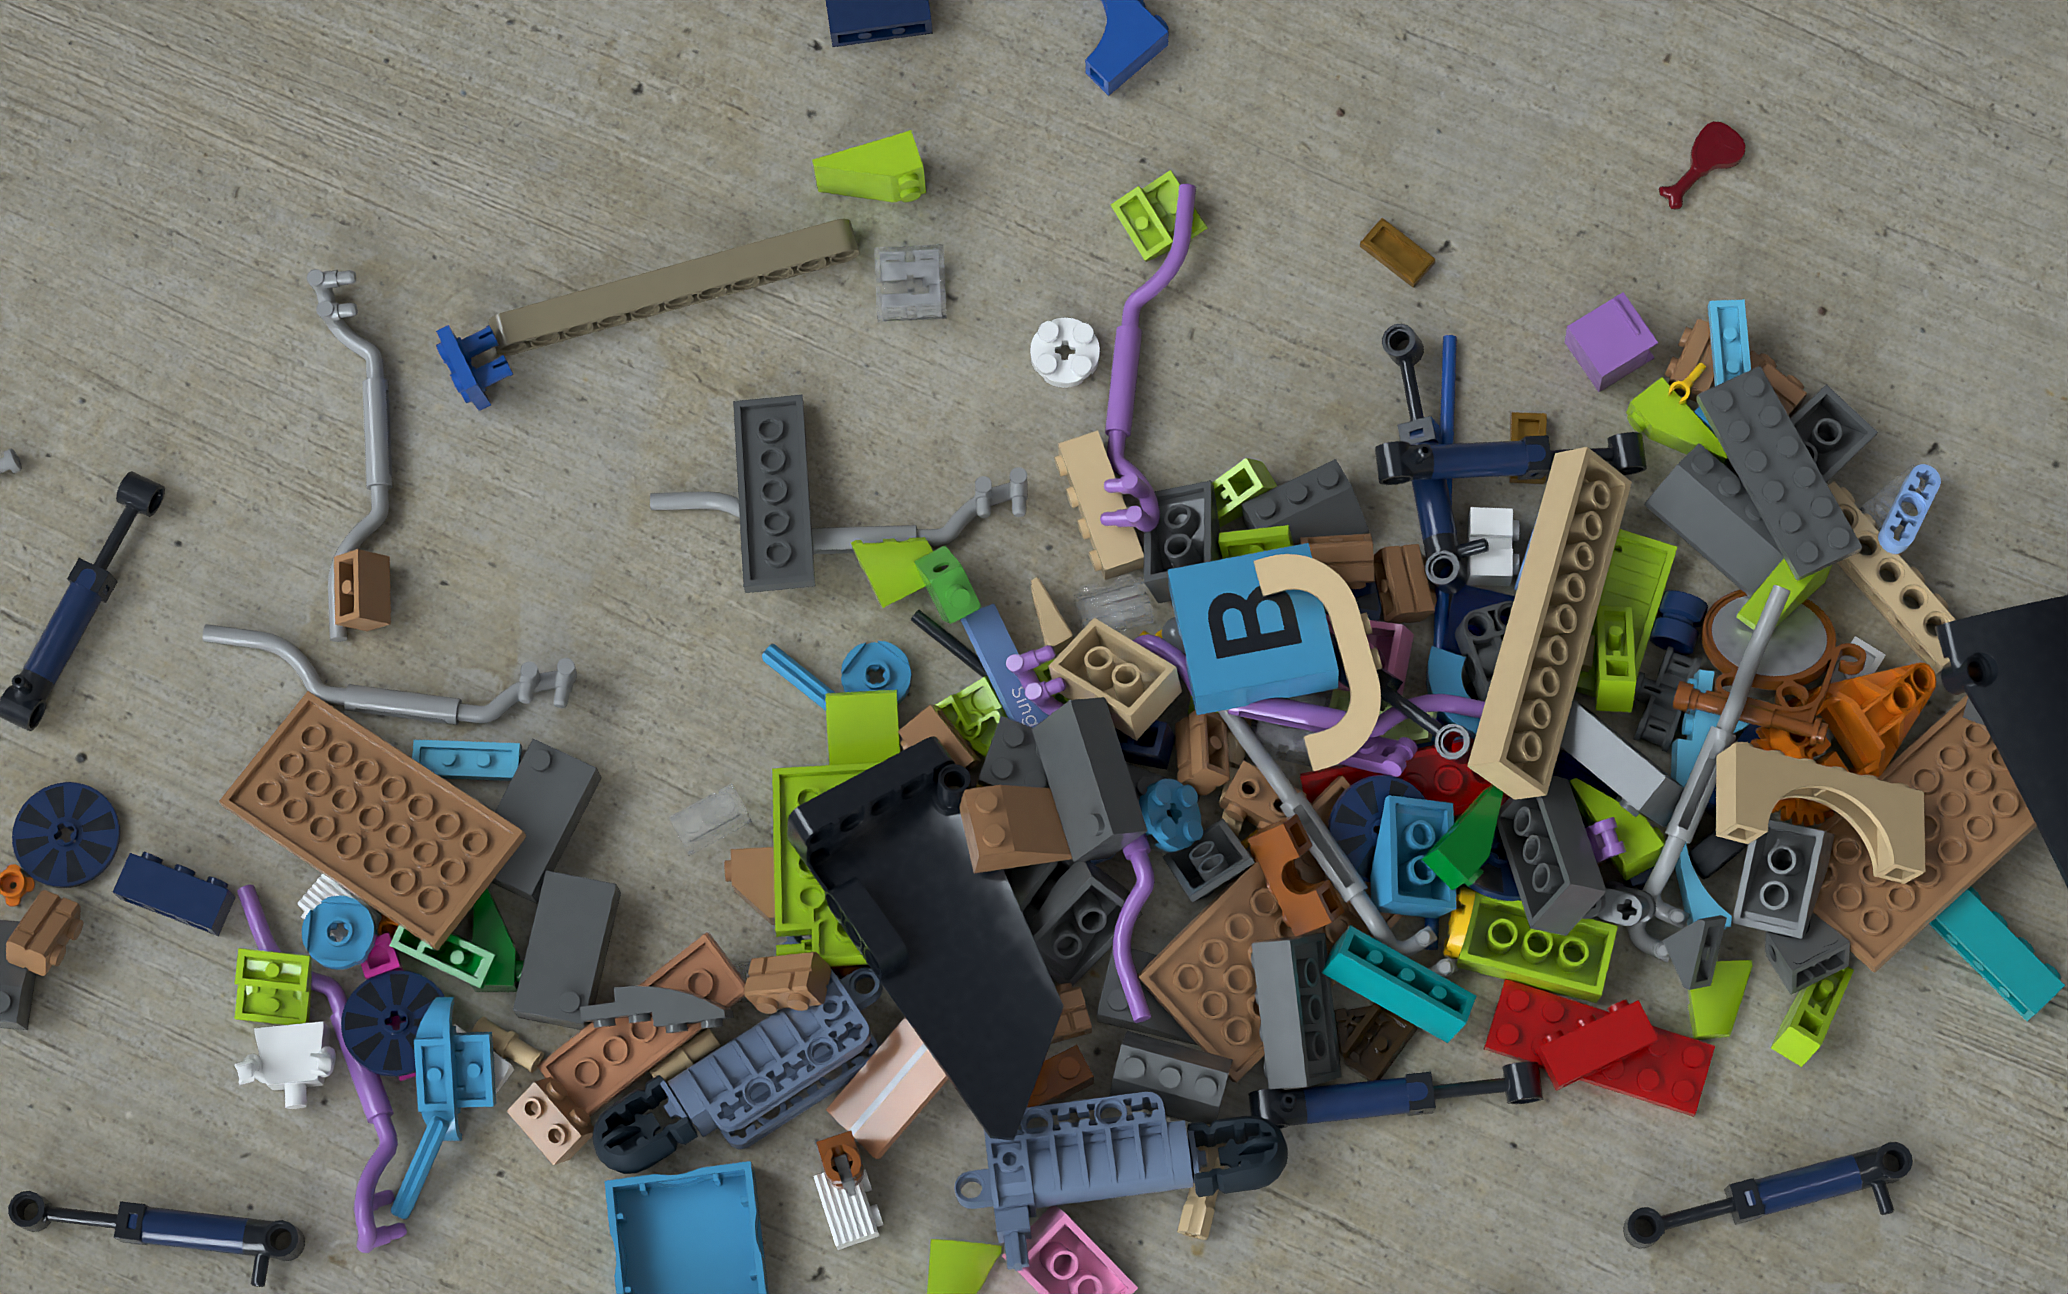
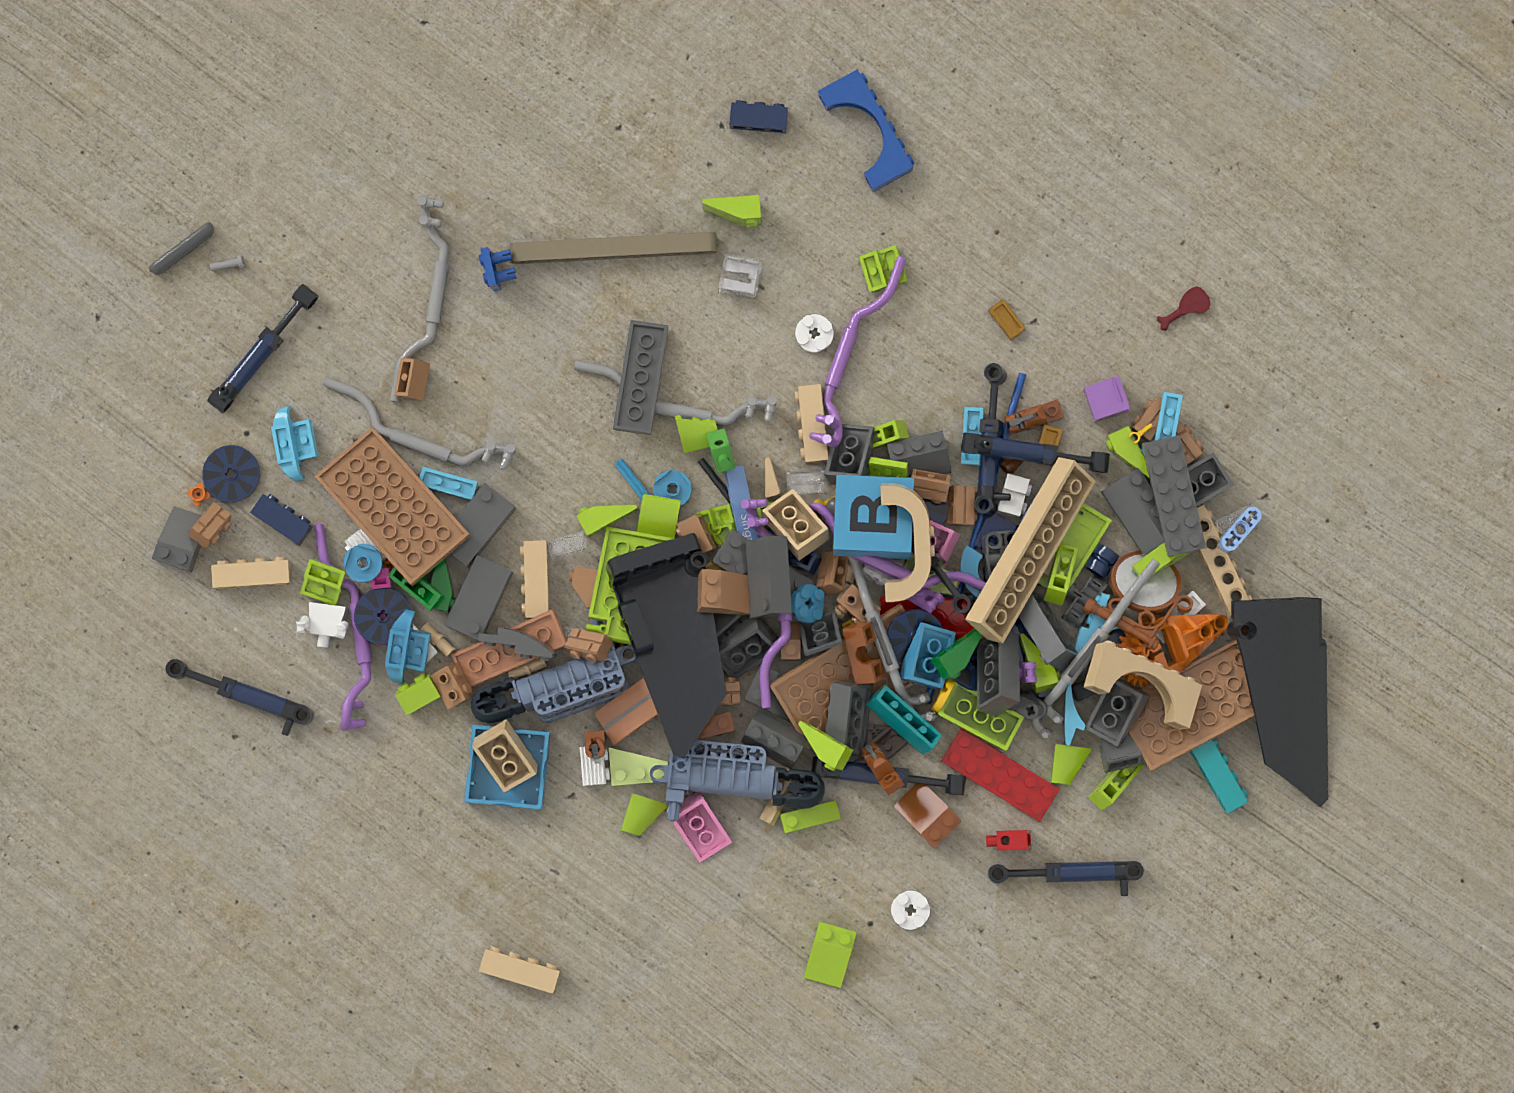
camera: 15 degrees right, 10 degrees up
(137, 1005) = (251, 574): none -> tan brick
(169, 753) = (293, 442): none -> medium azure plate
(420, 1167) = (379, 694): dark azure axle -> none
(490, 1150) = (417, 693): none -> lime brick
(663, 887) = (536, 578): none -> tan brick
(678, 1223) = (505, 755): none -> tan brick
(753, 755) = (600, 517): none -> lime slope
(919, 1195) = (632, 768): none -> yellowish green wing
(1161, 909) = (792, 649): none -> medium nougat slope
(1269, 1206) = (810, 817): none -> lime slope
(1274, 1065) = (826, 747): none -> lime slope
(1382, 428) = (971, 424): none -> medium azure plate
(1382, 1080) = (881, 768): none -> dark orange plate
(1470, 492) = (1009, 465): none -> reddish brown cone
(1486, 1149) = (927, 814): none -> dark orange slope
(1490, 403) = (1034, 417): none -> dark orange plate
(1596, 1043) = (997, 774): red brick -> none
(1668, 1159) = (1018, 840): none -> red torso
(1696, 951) = (1061, 740): dark grey slope -> none

